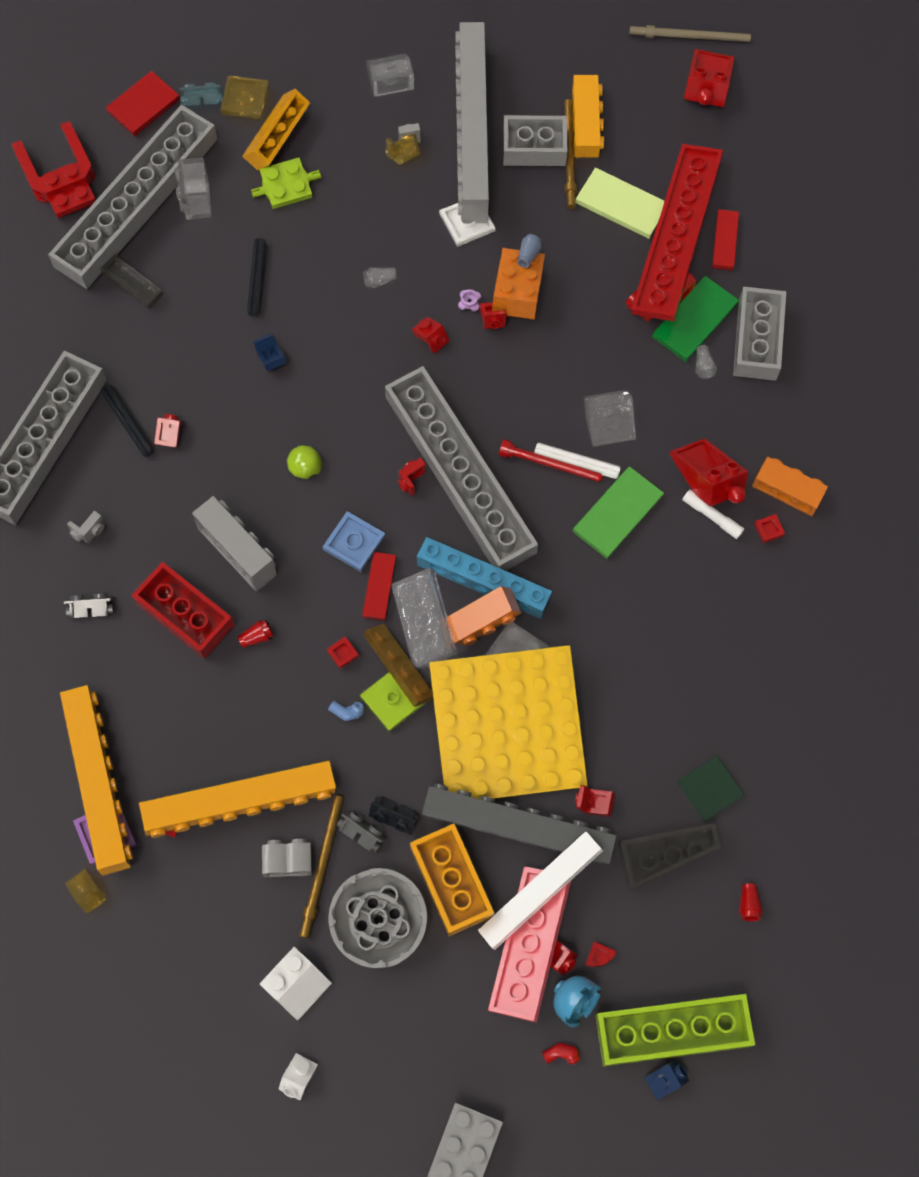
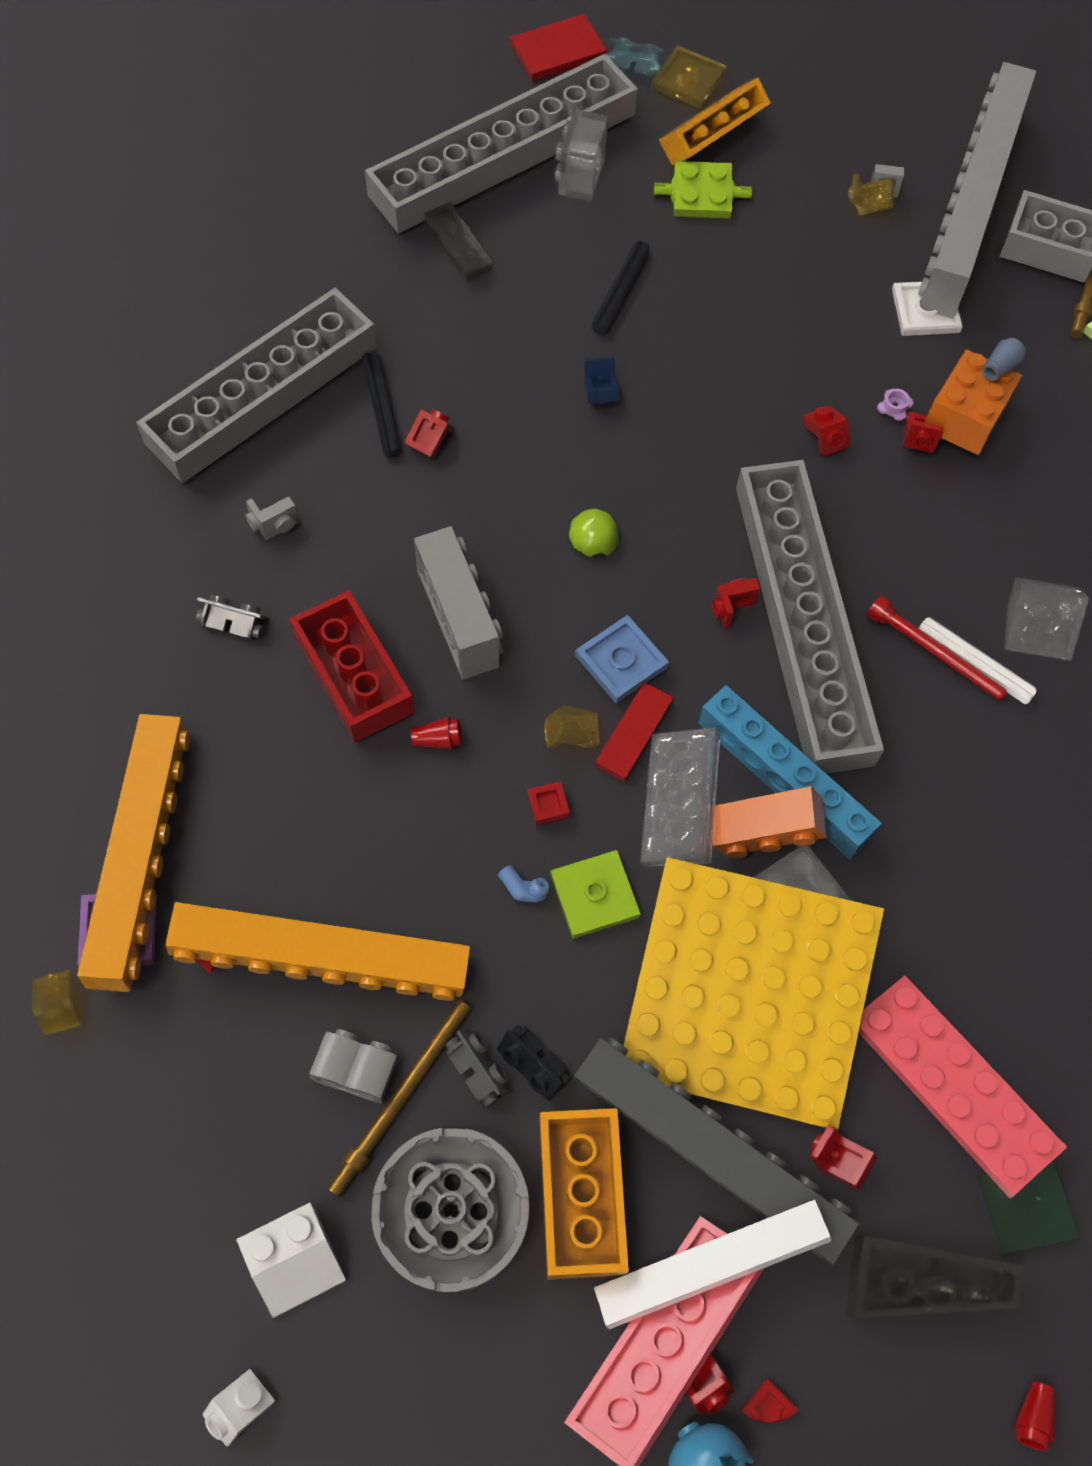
camera: 20 degrees right, 5 degrees down
(65, 187) = (421, 107): red plate -> none
(339, 598) = (572, 727): none -> clear yellow bracket
(378, 276) = (783, 336): clear cone -> none
(390, 74) = (887, 107): clear slope -> none
(398, 665) = (621, 849): pearl gold plate -> none
(618, 512) = (1013, 751): bright green tile -> none
(648, 733) = (959, 1087): none -> coral plate

